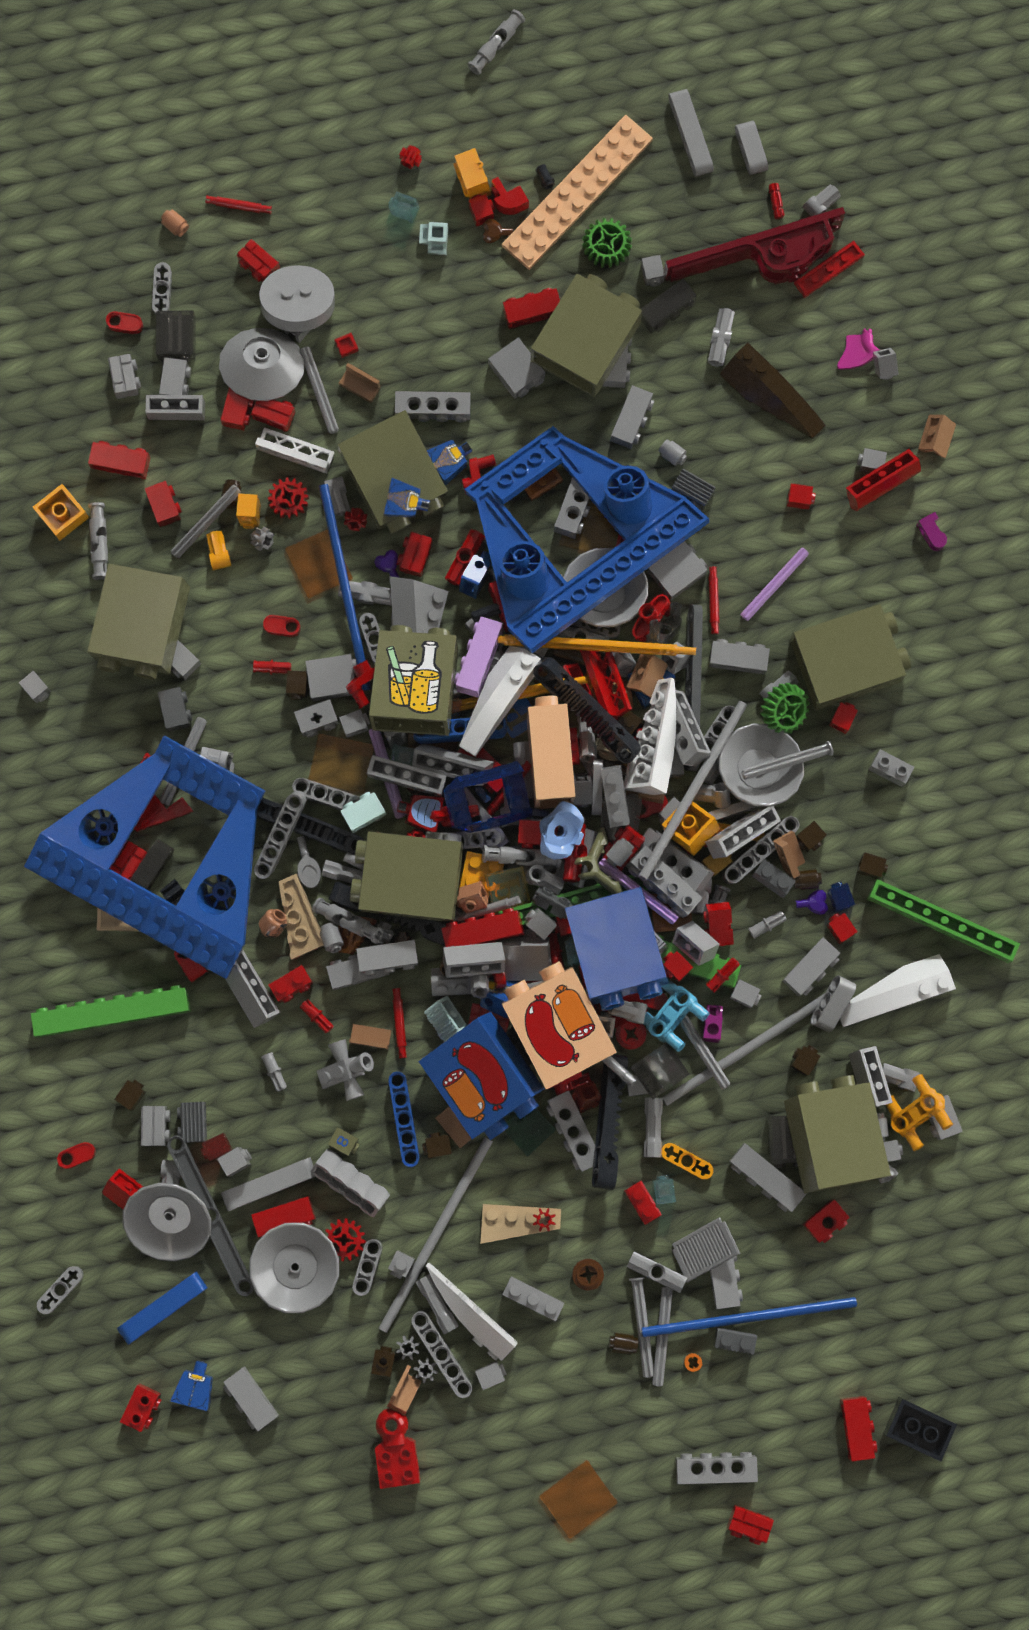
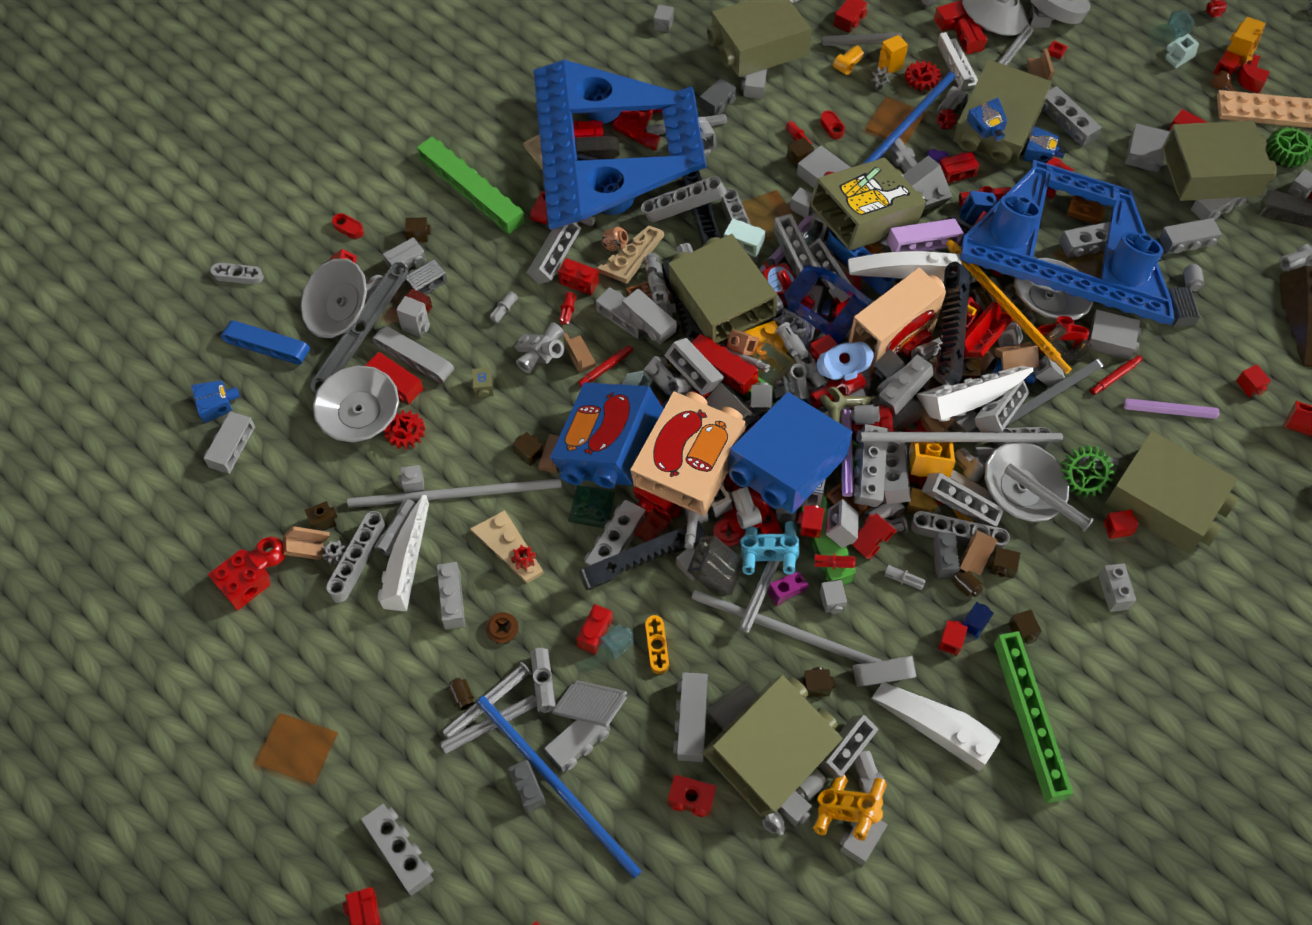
camera: 55 degrees right, 20 degrees down
(140, 1407) = (174, 373): red brick -> none
(306, 718) = (786, 178): light grey brick -> none
(308, 868) = (674, 237): light grey piece -> none
(331, 937) = (634, 278): light grey brick -> none
(347, 1180) = (453, 404): light grey brick -> none
(374, 1260) = (383, 456): light grey beam -> none
(398, 1111) = (528, 419): blue beam -> none
(402, 1349) = (341, 531): light grey gear -> none
(491, 1375) = (362, 604): light grey brick -> none
(545, 177) = (1290, 88): black pin -> none
(653, 1114) = (665, 597): light grey axle -> none
(687, 1363) = (488, 769): orange bush -> none
(739, 656) = (1092, 417): light grey brick -> none
(812, 967) = (899, 635): light grey brick -> none
(814, 902) = (954, 604): dark purple rock -> none

